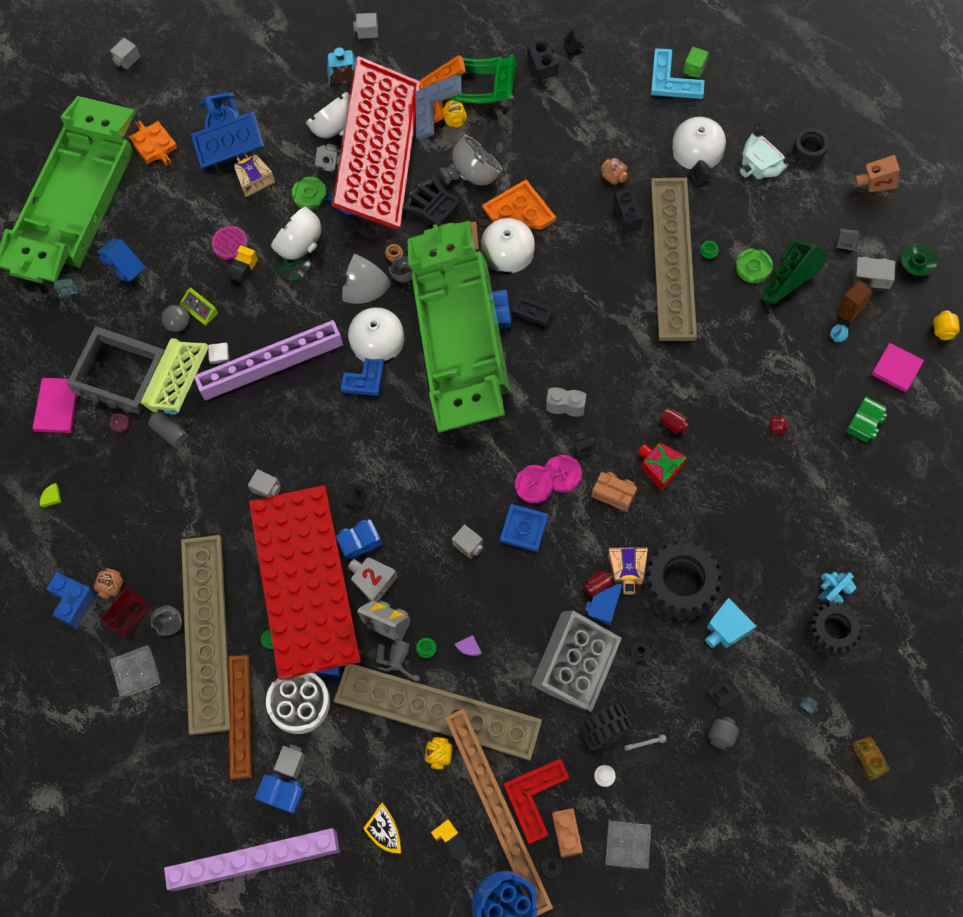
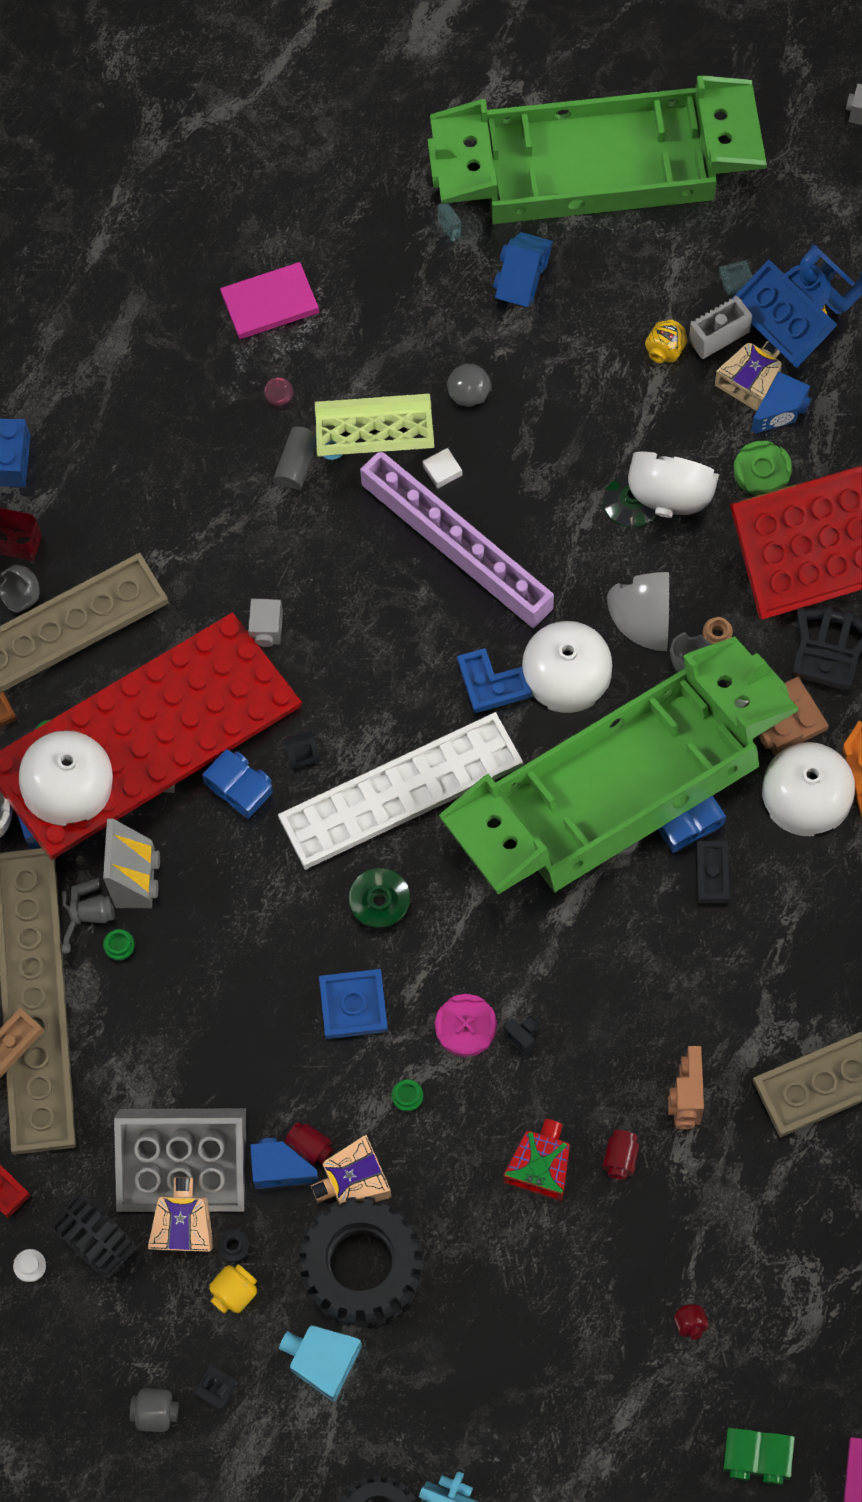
camera: 65 degrees right, 0 degrees up
(50, 496) = (135, 360): lime tile -> none
(108, 583) = (41, 491): nougat head -> none
(121, 342) = (348, 300): dark grey window -> none
(153, 142) = (739, 217): orange plate -> none
(188, 159) = (735, 276): none -> clear light blue tile
(198, 306) = (501, 407): slope -> none
(207, 207) = (666, 341): none -> yellow head
(216, 176) = (720, 327): none -> light grey brick
(227, 242) = (625, 399): tile -> none
(242, 264) = (594, 433): leg -> none
(279, 165) = (781, 404): none -> blue slope
(320, 636) = (65, 777): none -> white cylinder
(327, 157) = (829, 459): light grey brick -> none
(372, 578) = (187, 826): light grey torso -> none
(406, 453) = (399, 790): none -> white plate
(464, 480) = (376, 884): none -> dark green dish
(468, 542) = (297, 933): light grey brick -> none
(468, 646) = (144, 1002): medium lavender tile -> none
(534, 484) = (428, 990): dark pink tile -> none
(567, 402) = (578, 978): light grey brick -> none
(591, 520) = (407, 1095): none -> green plate
(614, 491) = (466, 1109): nougat brick -> none
(616, 673) = (181, 1220): none -> torso
(656, 368) = (686, 1098): none -> nougat plate
(662, 738) = (116, 1327): light grey hinge -> none
(668, 659) = (233, 1289): none -> yellow head

